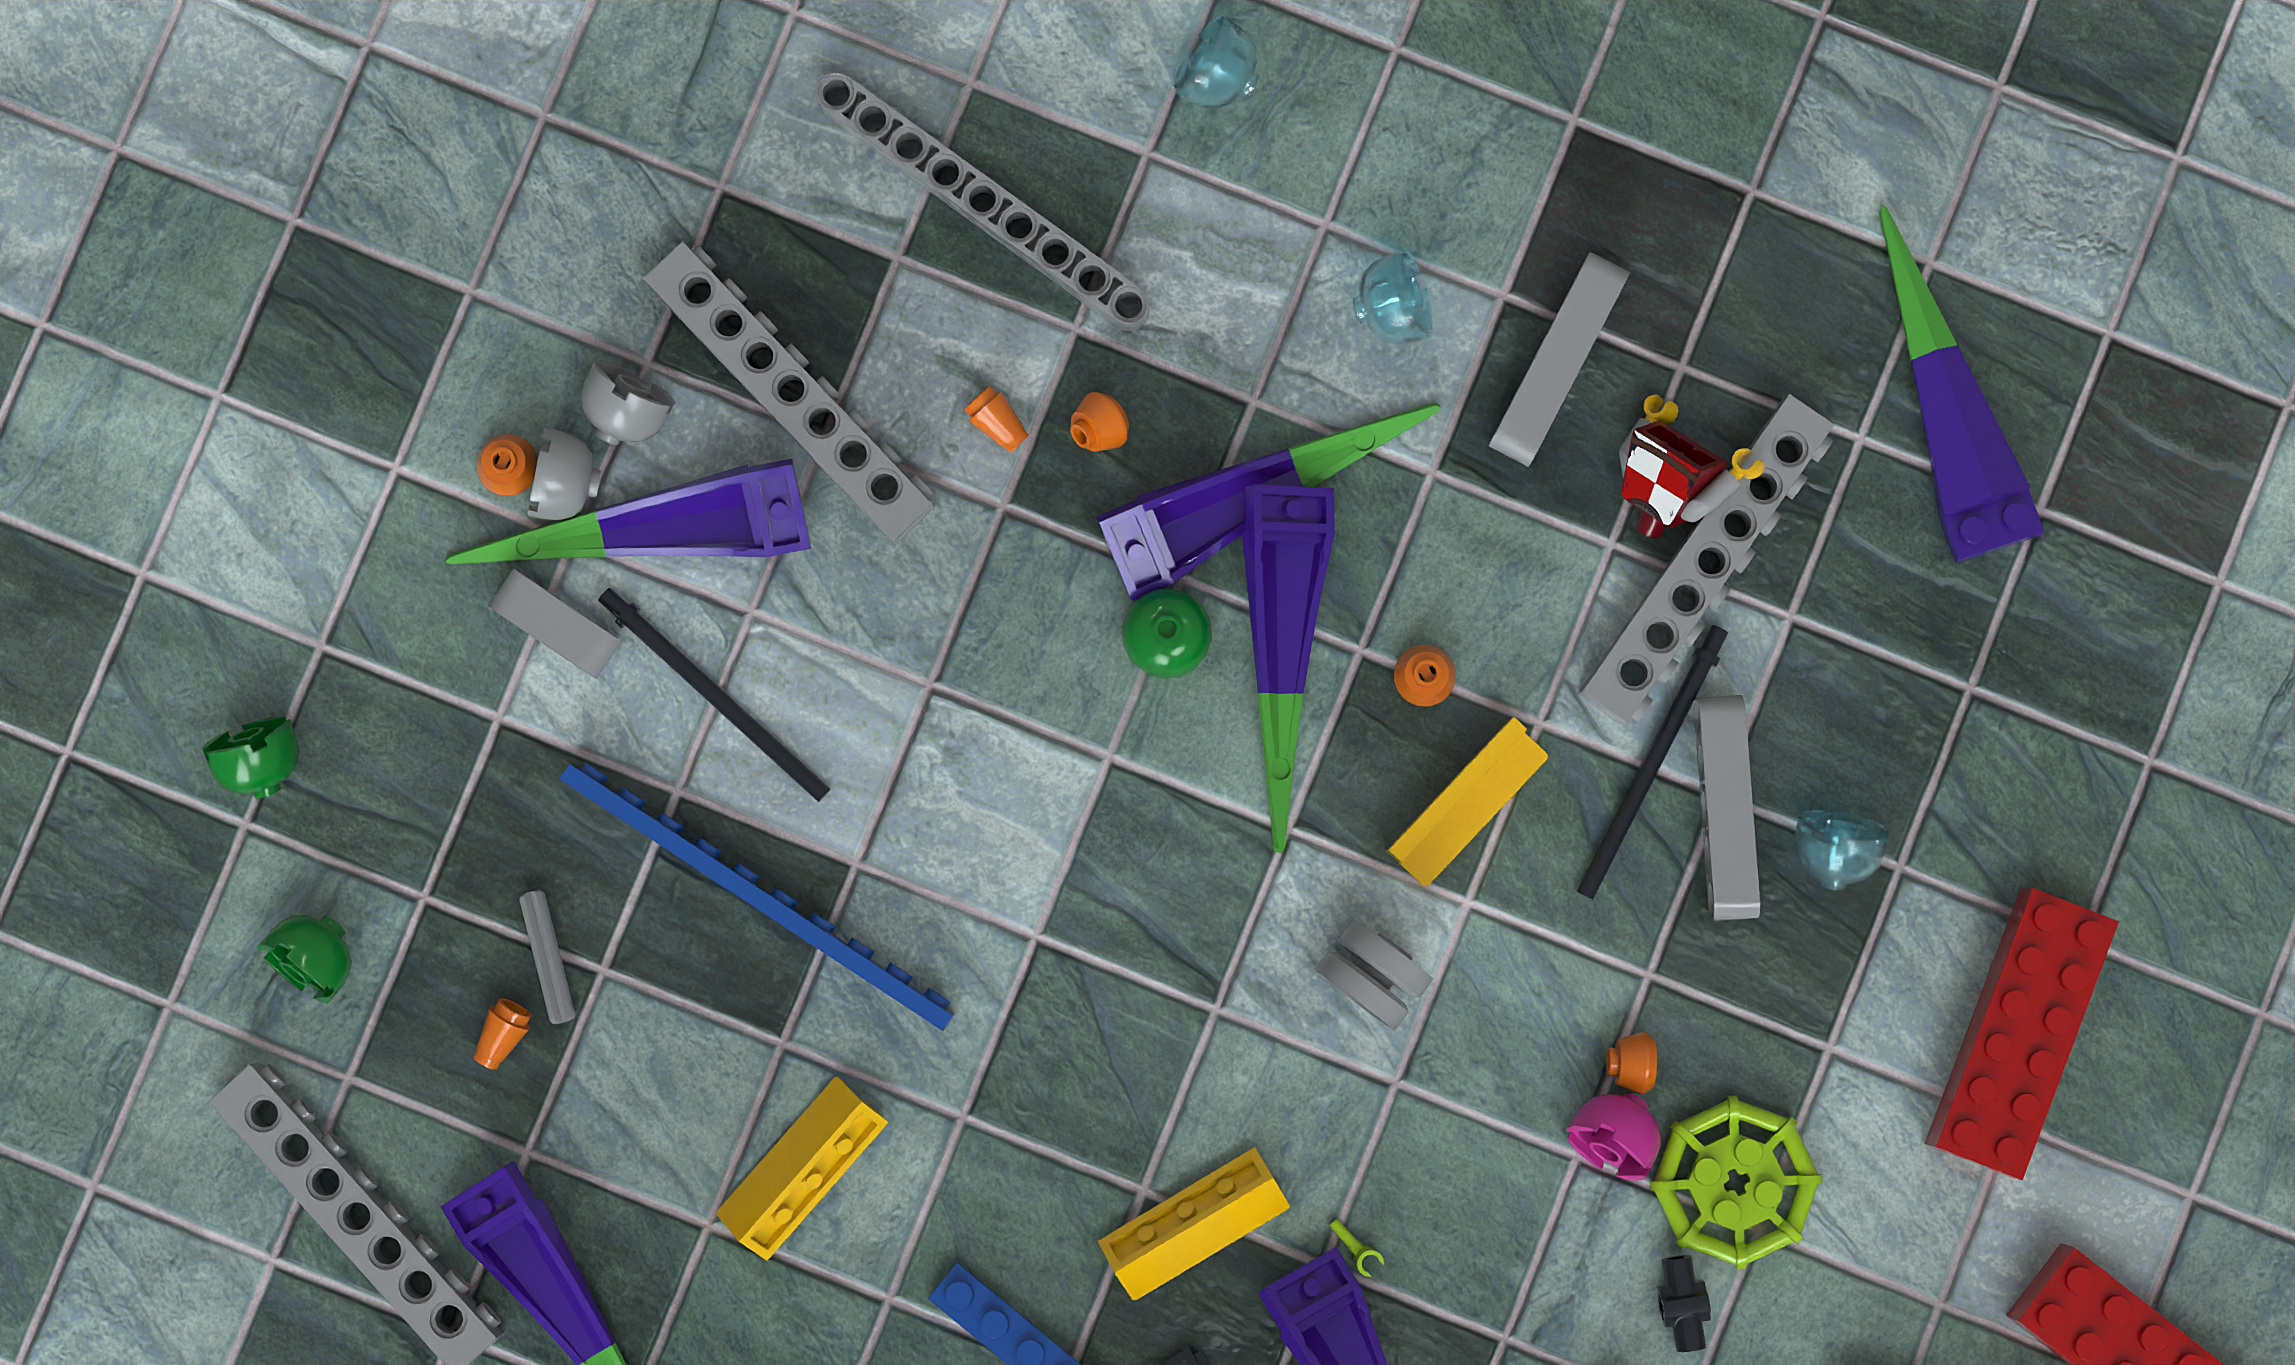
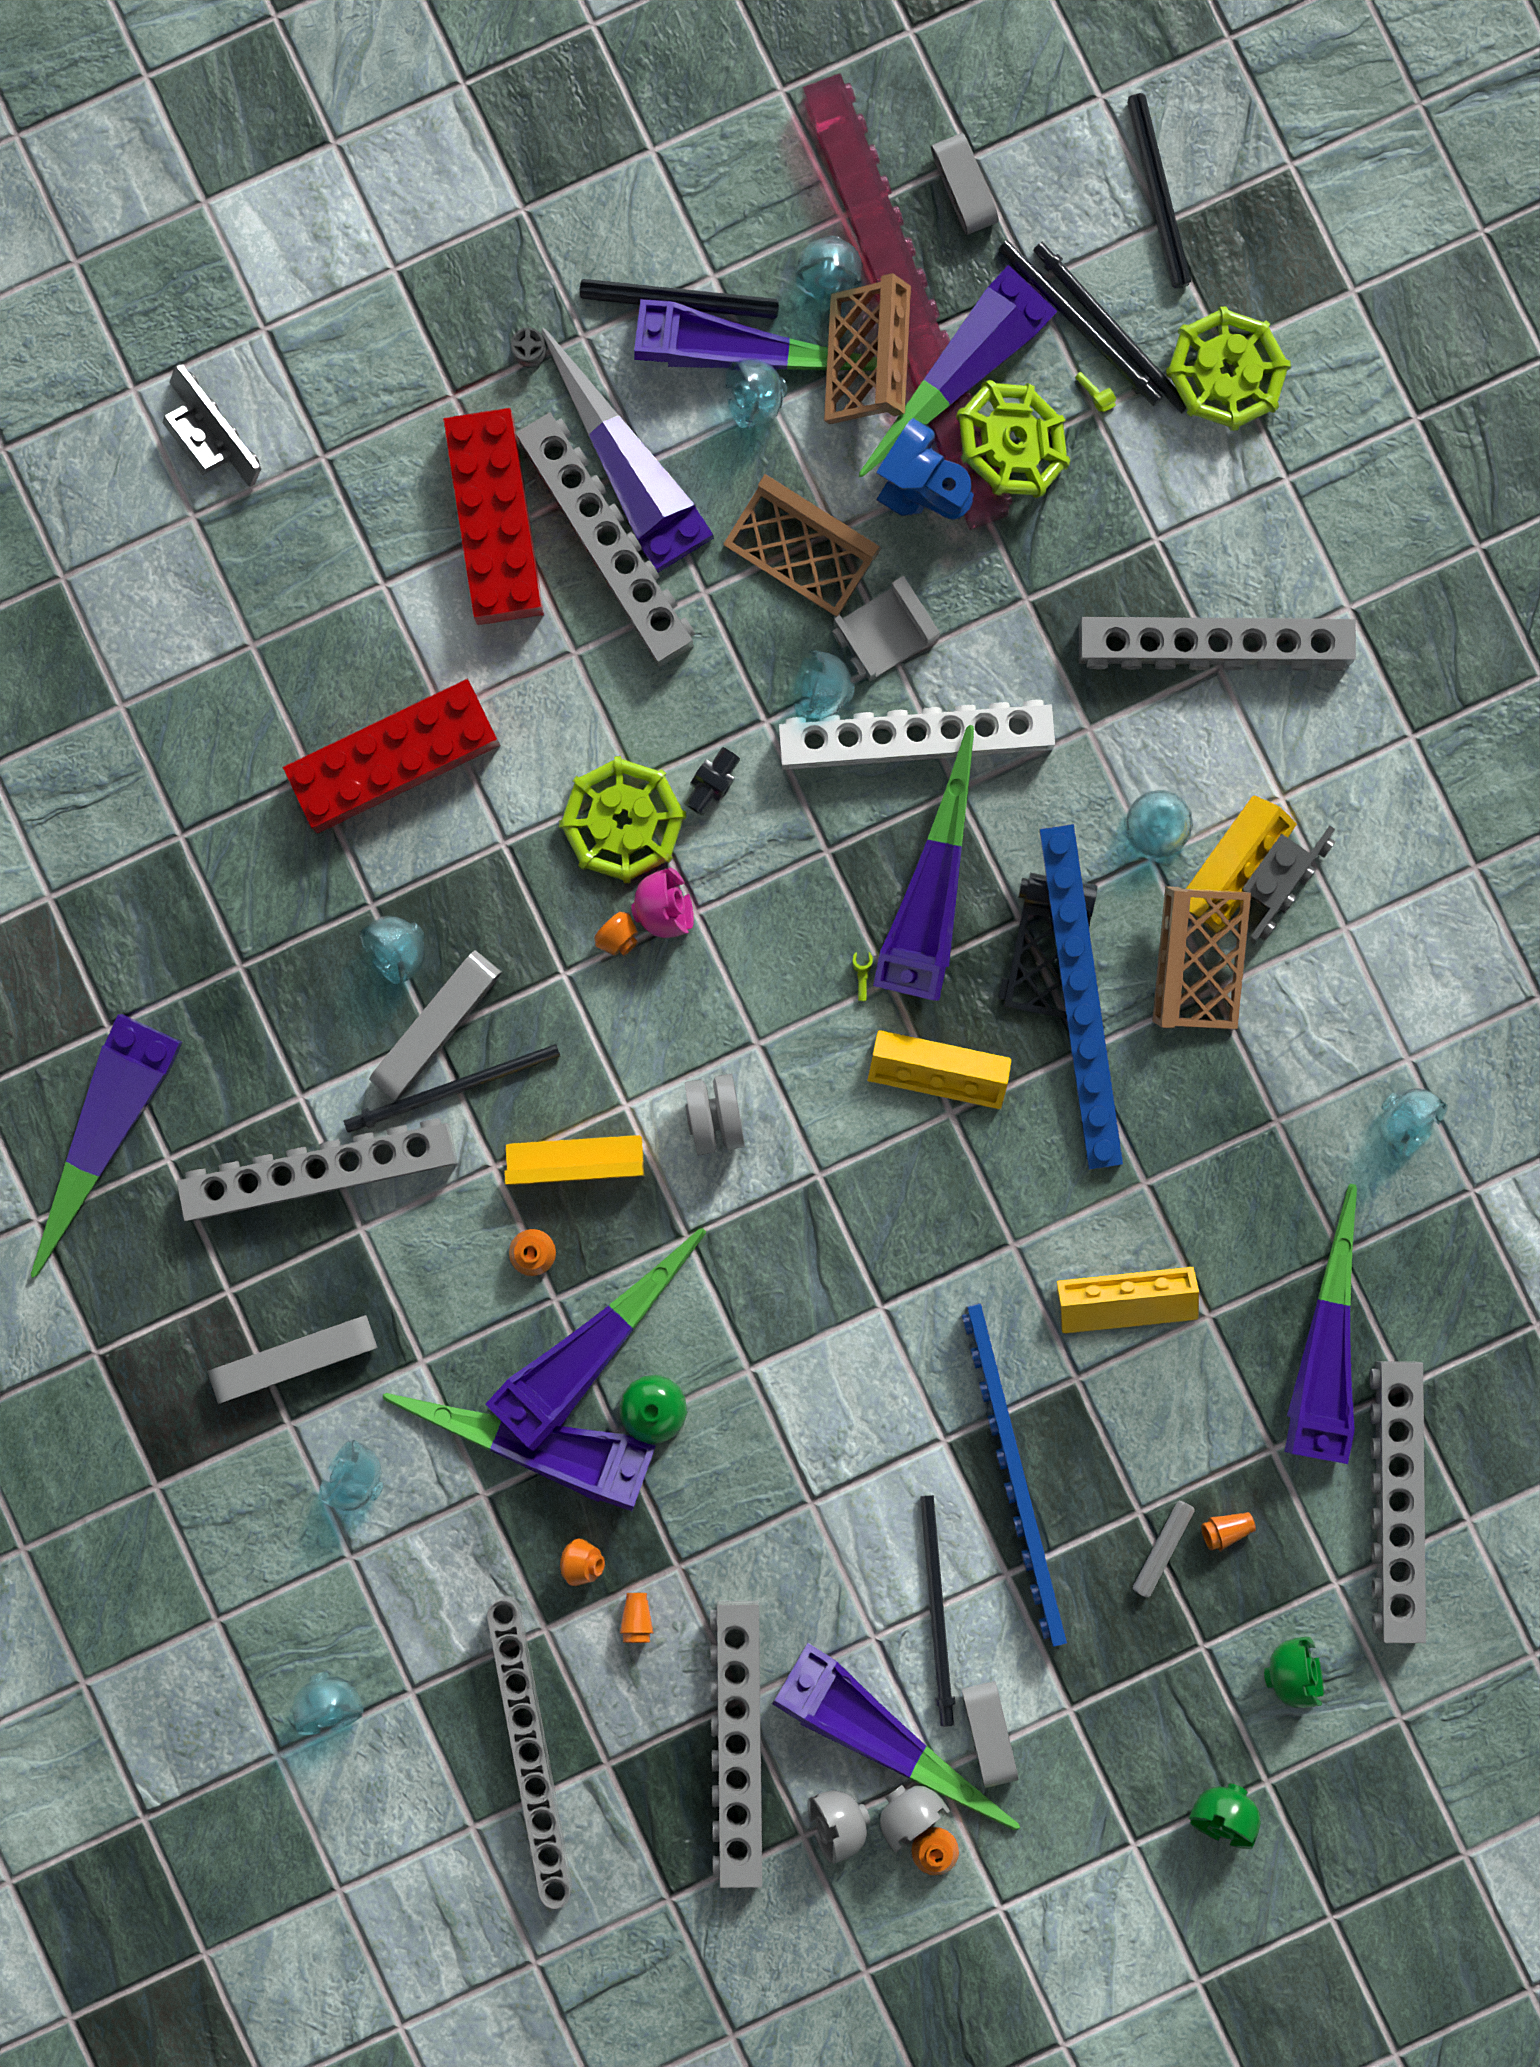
camera: 130 degrees left, 0 degrees up
(1674, 475) = (291, 1236): torso -> none

